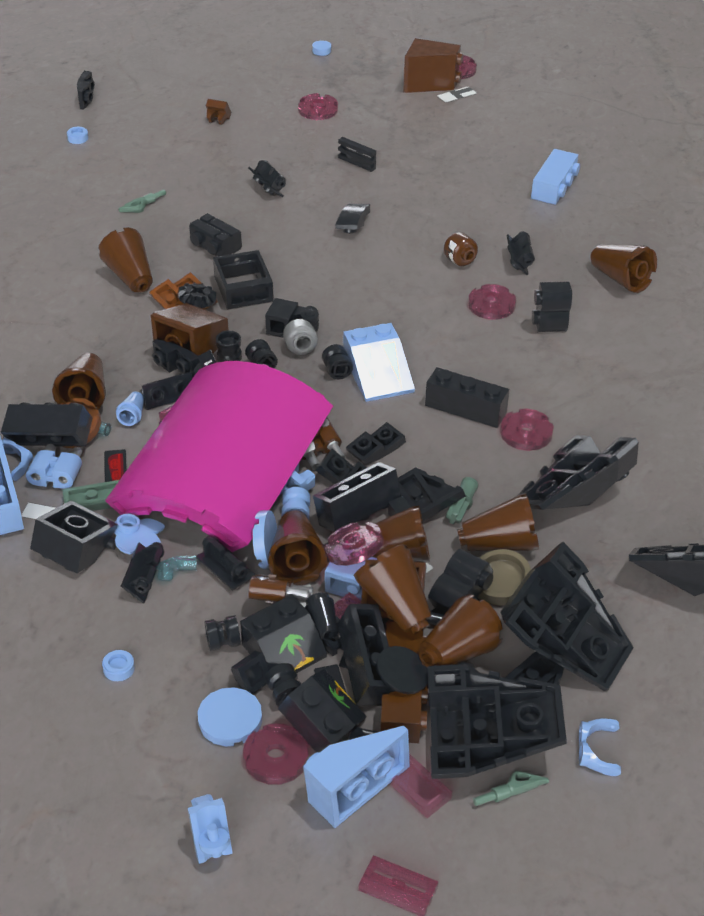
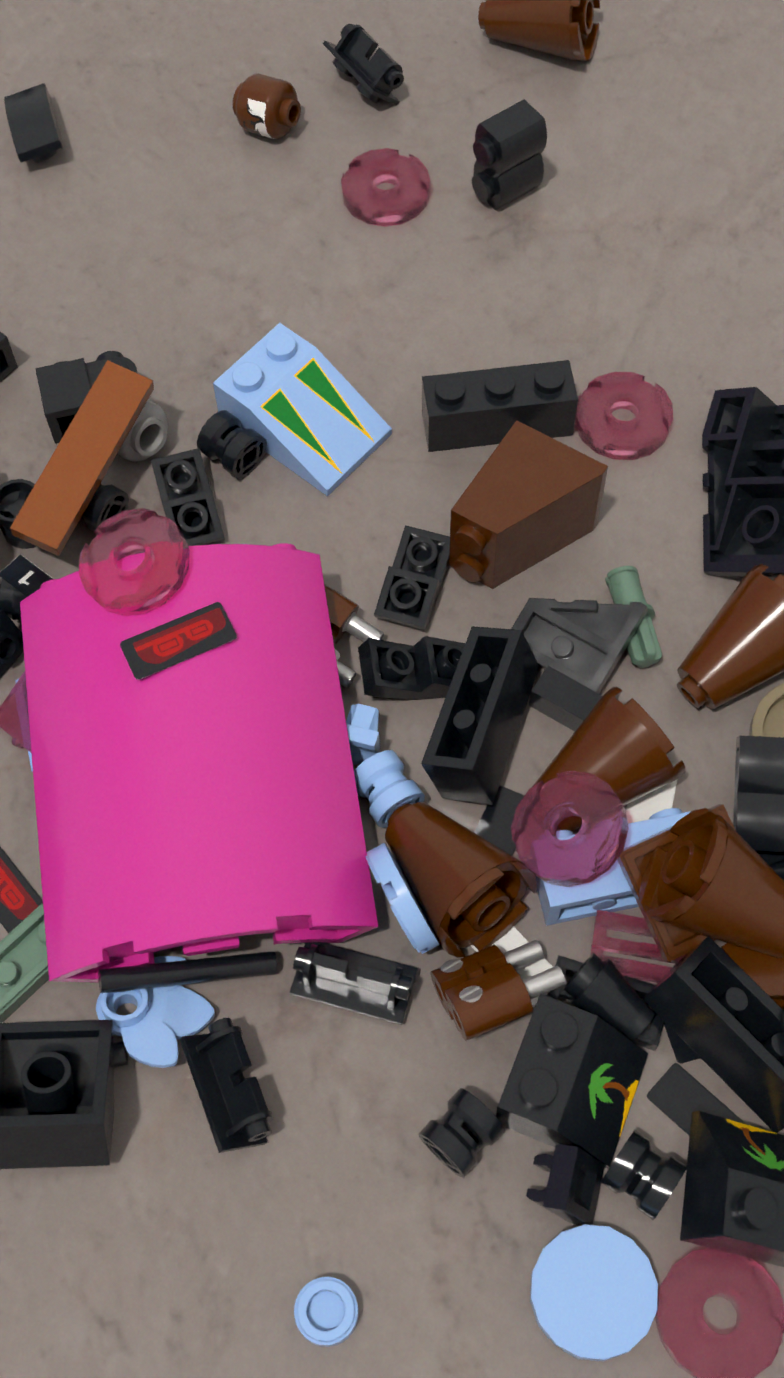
camera: 30 degrees left, 20 degrees up
(160, 525) = (187, 972): none -> black bar
(175, 563) = (265, 1033): clear light blue arm -> none
(243, 397) = (178, 640): none -> sticker
(260, 363) = (148, 584): none -> clear pink tile
(266, 332) = (82, 458): none -> dark orange tile
(306, 368) = (188, 496): none -> black slope
(439, 433) = (524, 506): none -> reddish brown slope

